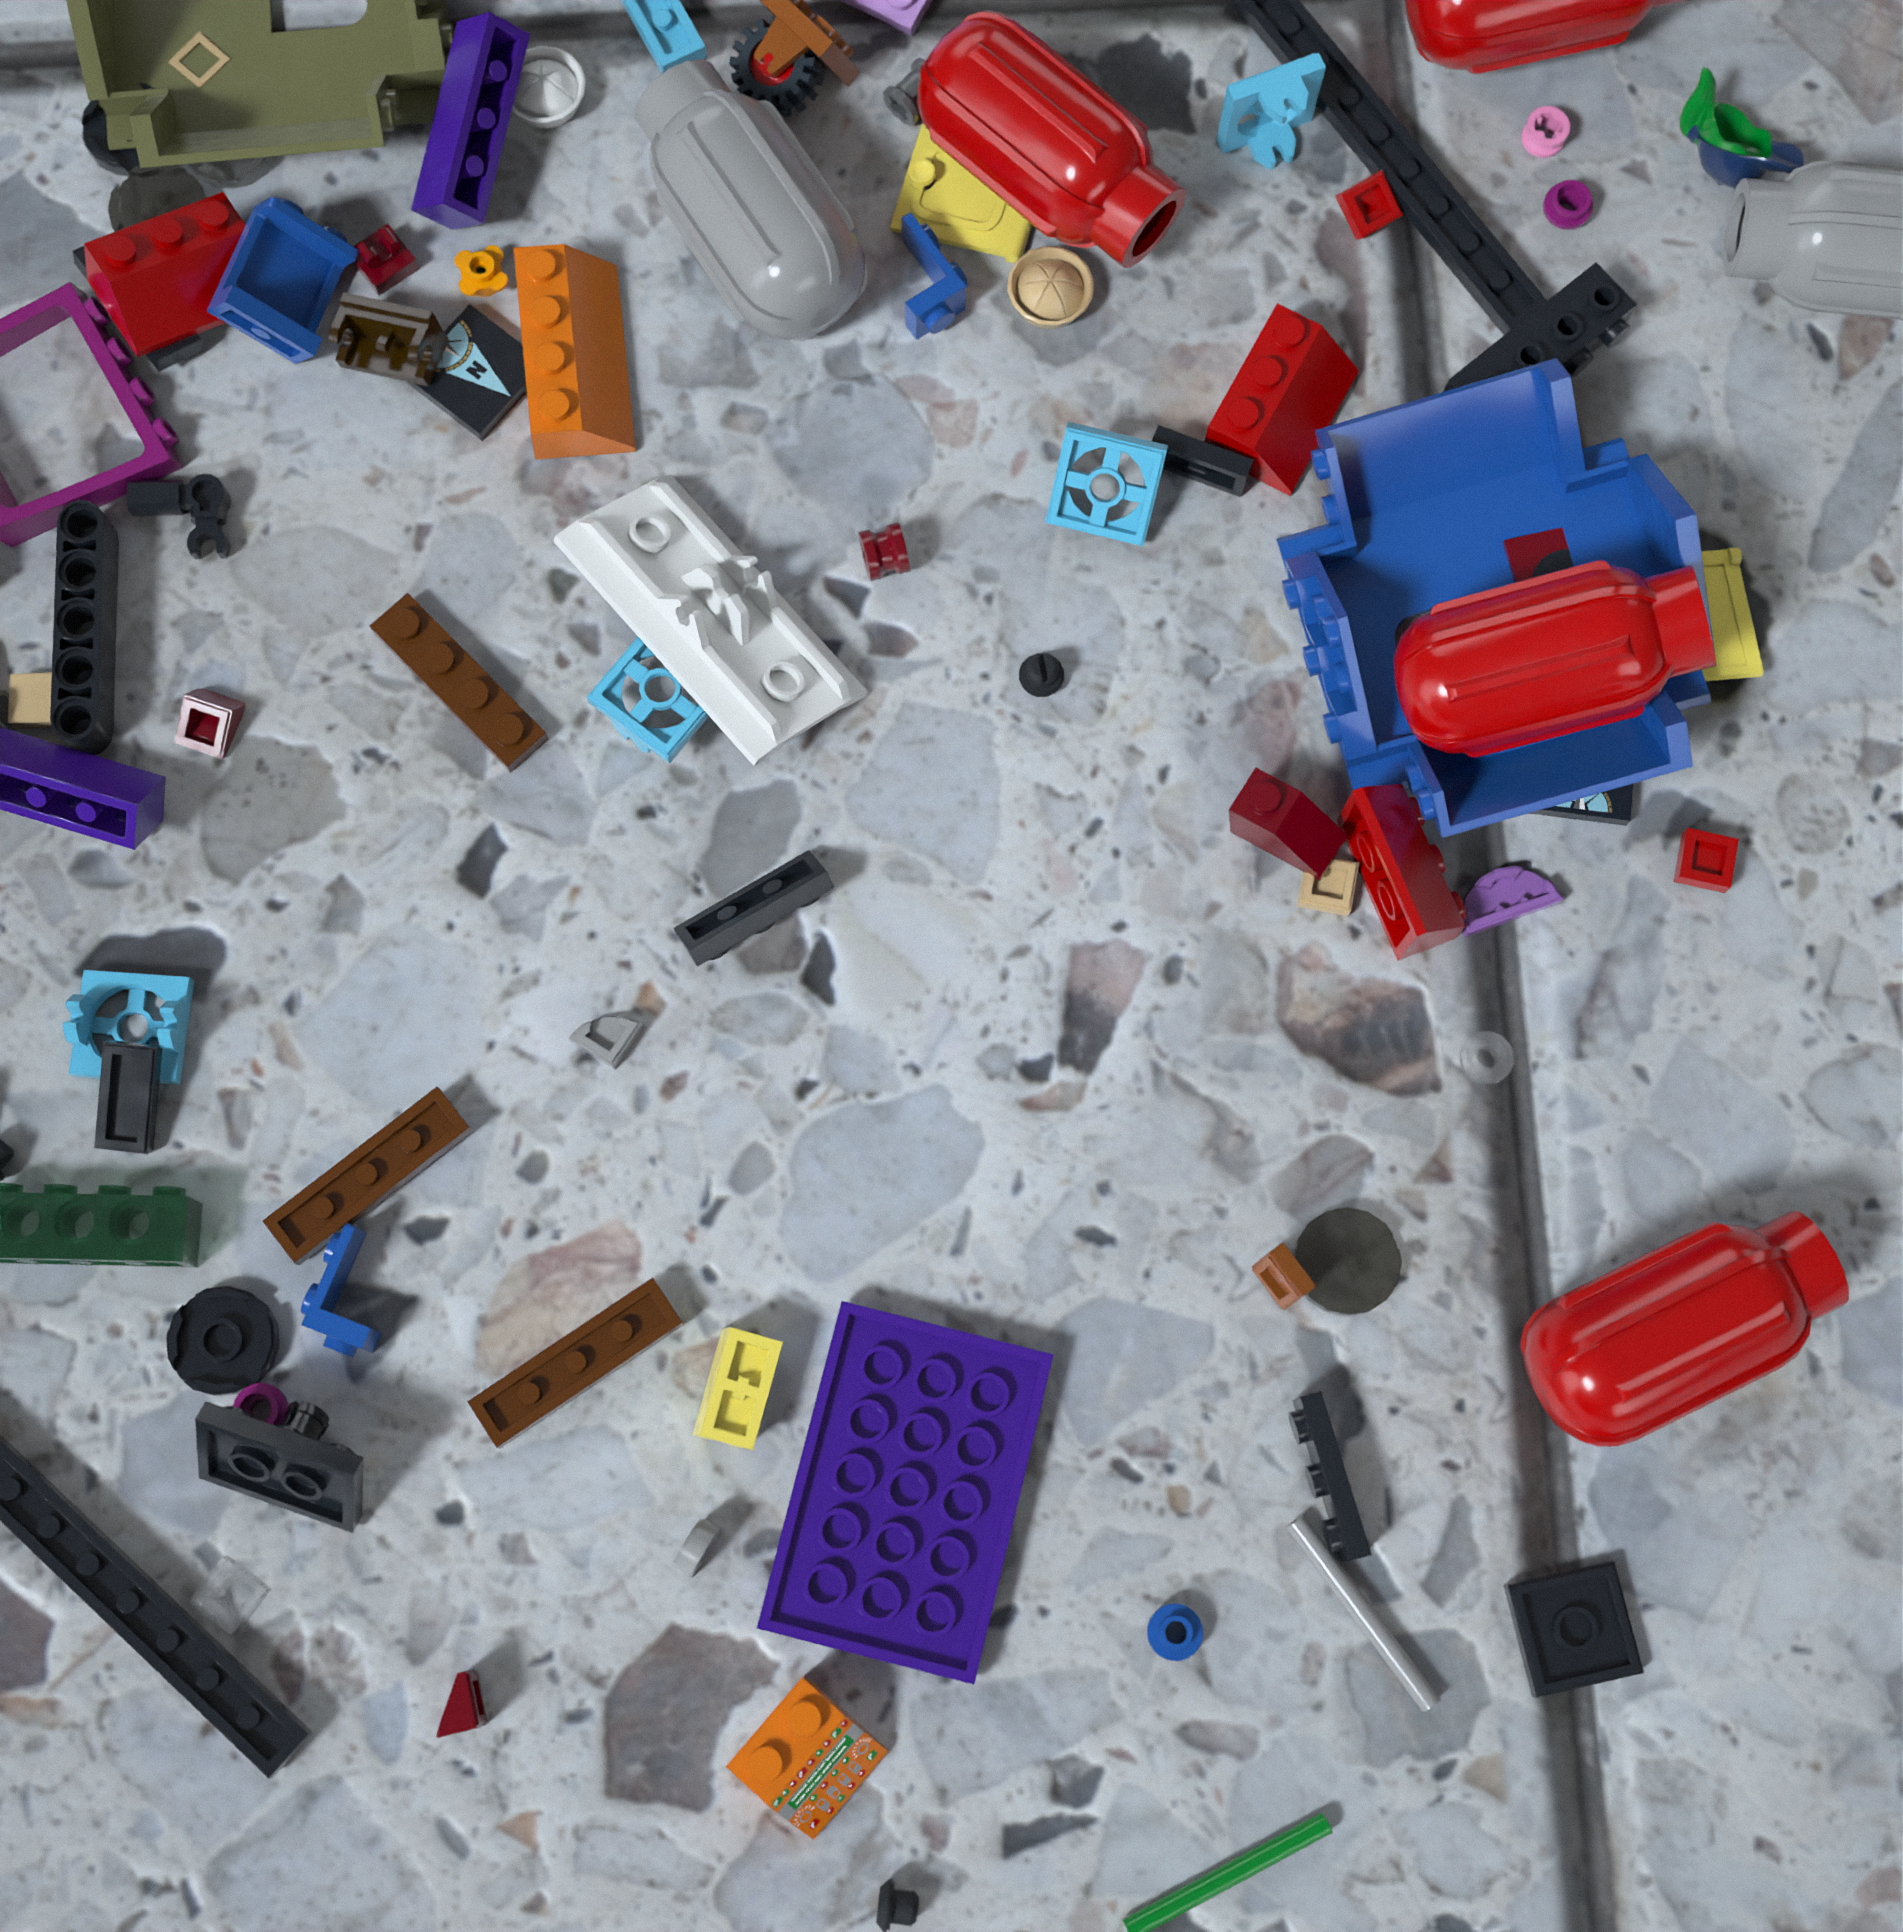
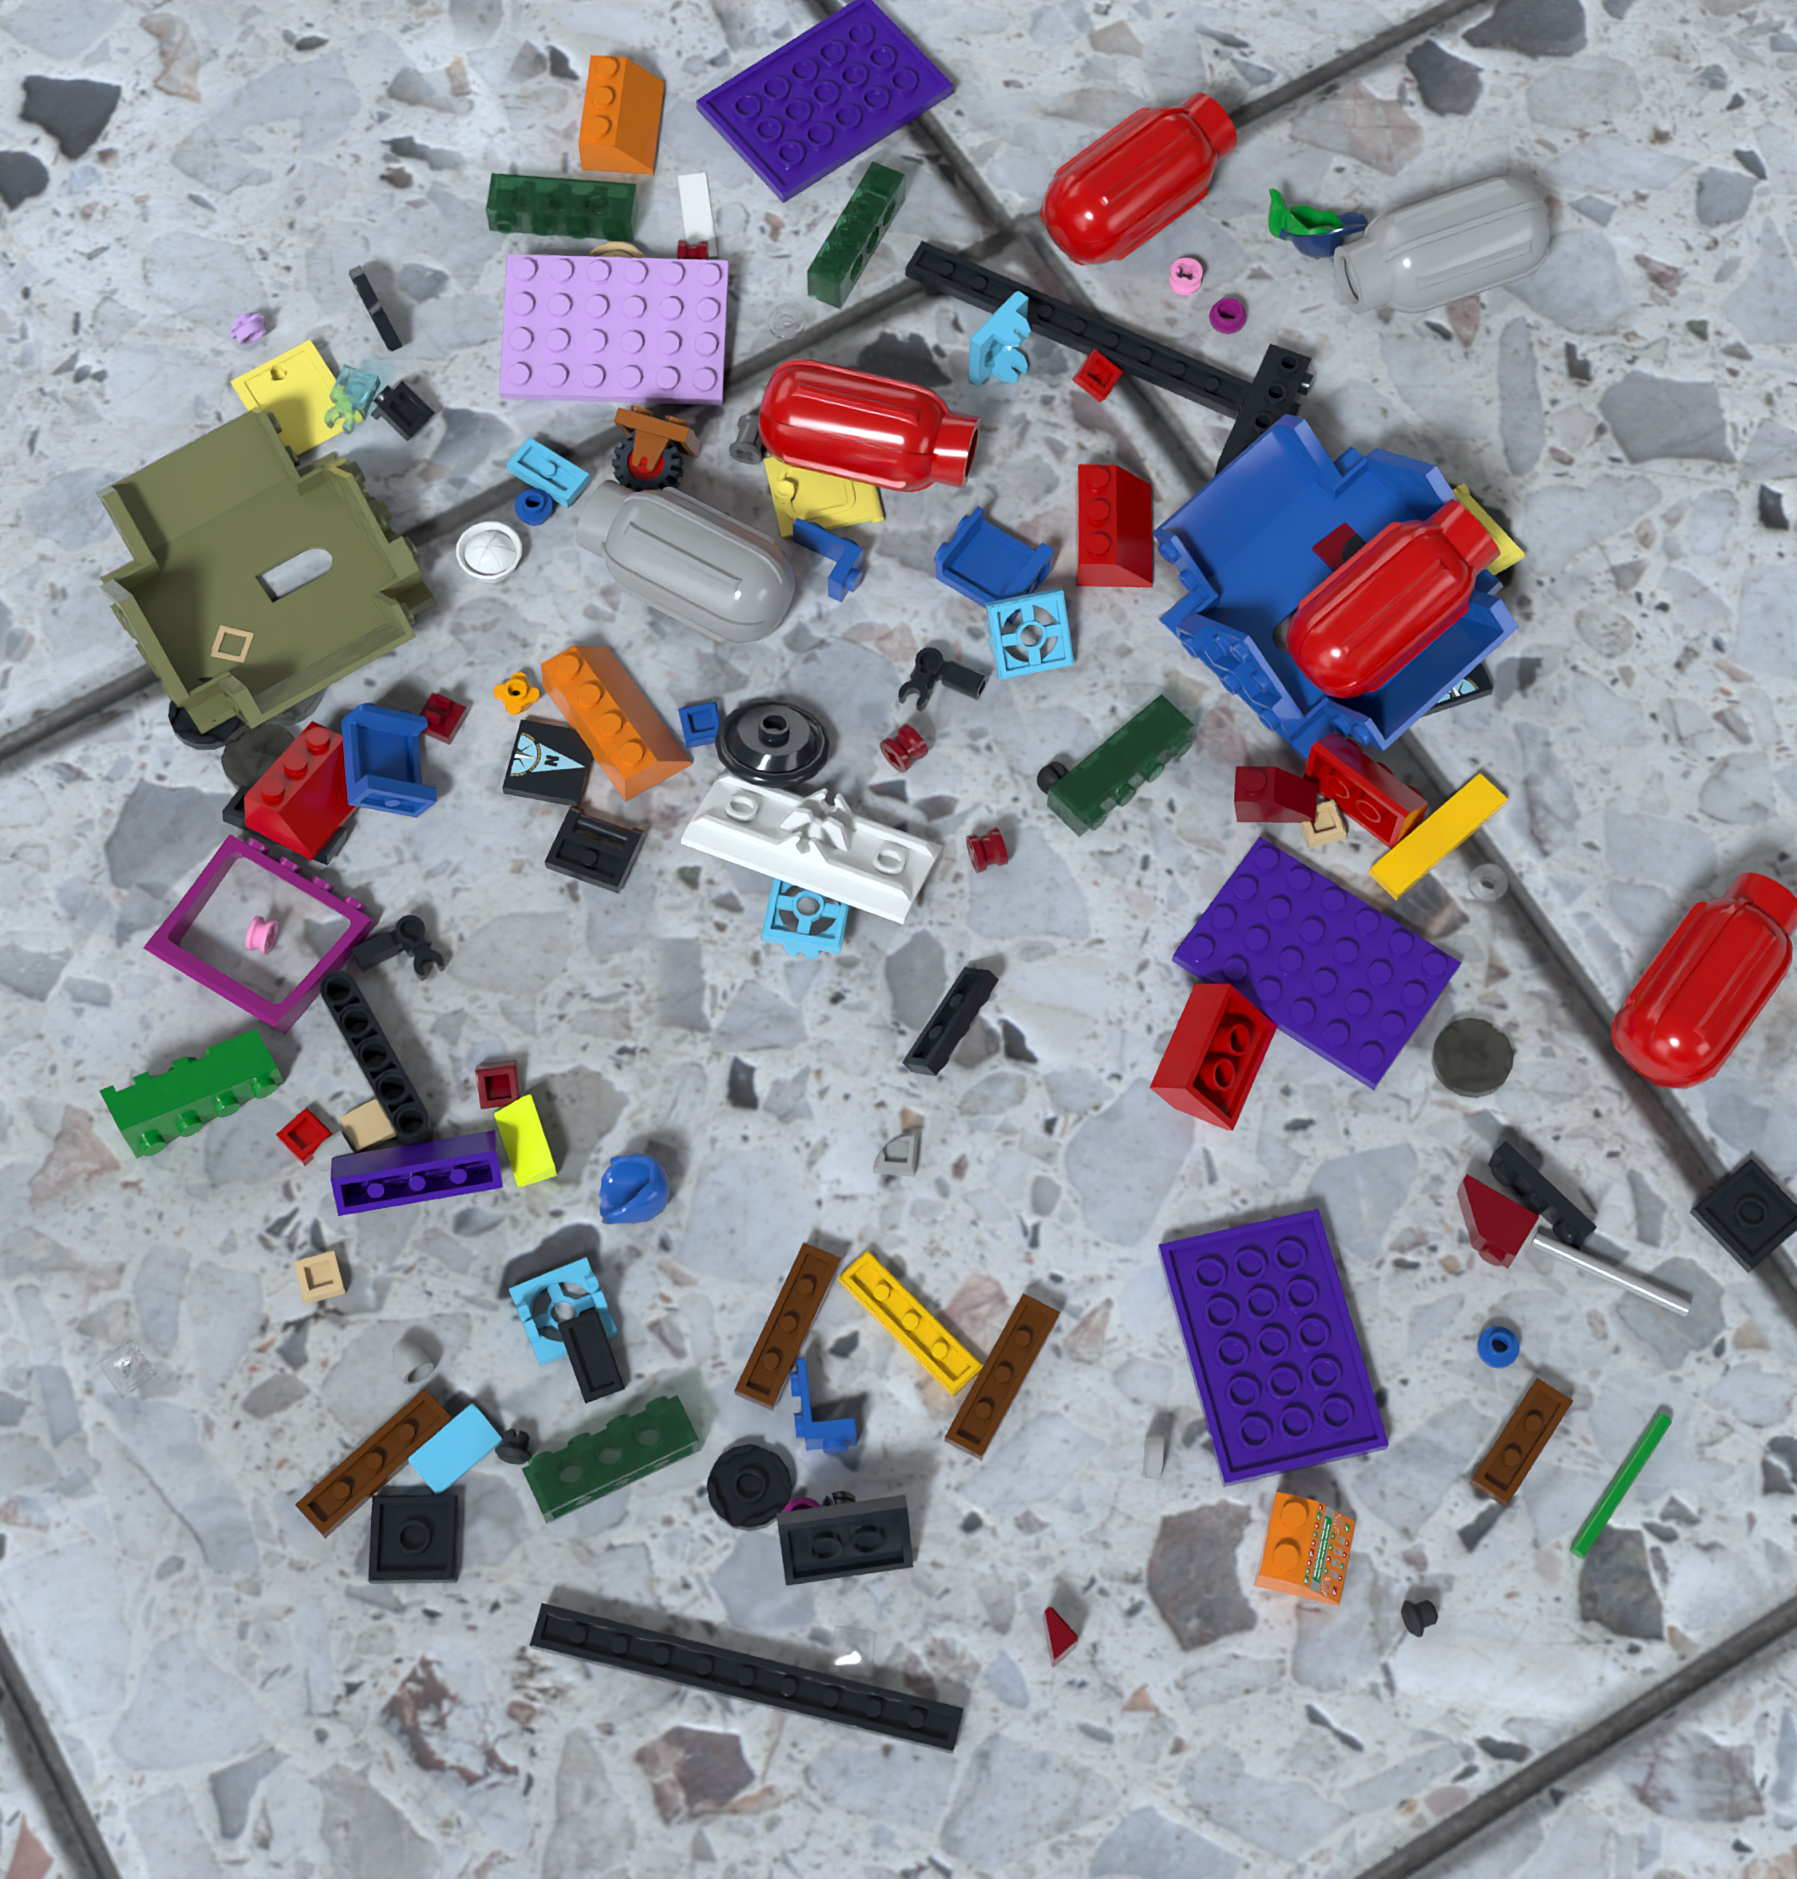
camera: 25 degrees left, 10 degrees down
(42, 418) = (262, 934): none -> bright pink bush
(201, 807) = (525, 1142): none -> neon yellow slope
(281, 927) = (633, 1189): none -> blue hair
(387, 339) = (480, 767): dark brown hinge -> none
(455, 510) = (590, 859): none -> black plate
(459, 682) = (659, 973): reddish brown plate -> none
(470, 121) = (459, 596): dark purple brick -> none
(510, 1243) = (910, 1323): none -> yellow tile
(627, 68) = (537, 515): none -> blue plate
(671, 409) = (699, 724): none -> blue tile
(733, 473) = (772, 744): none -> black piece
(737, 1388) = (1121, 1336): light yellow hinge -> none
(911, 722) = (987, 850): none -> dark red wheel
(973, 470) = (931, 668): none -> black bar
(1037, 1104) = (1214, 1055): none -> red slope
(1050, 286) = (915, 525): tan hat -> none
(1113, 375) = (990, 563): none -> blue panel
(1126, 698) = (1120, 766): none -> clear green brick
(1136, 1763) = (1521, 1442): none -> reddish brown plate
(1204, 461) = (1087, 589): black tile -> none
(1226, 1052) = (1317, 962): none -> dark purple plate
(1254, 1481) = (1494, 1222): none -> dark red slope
(1283, 1276) = (1438, 1084): dark orange tile -> none
(1459, 969) = (1437, 836): none -> yellow tile
(1506, 896) = (1442, 774): medium lavender tile -> none
(1706, 860) = (1556, 690): red plate -> none

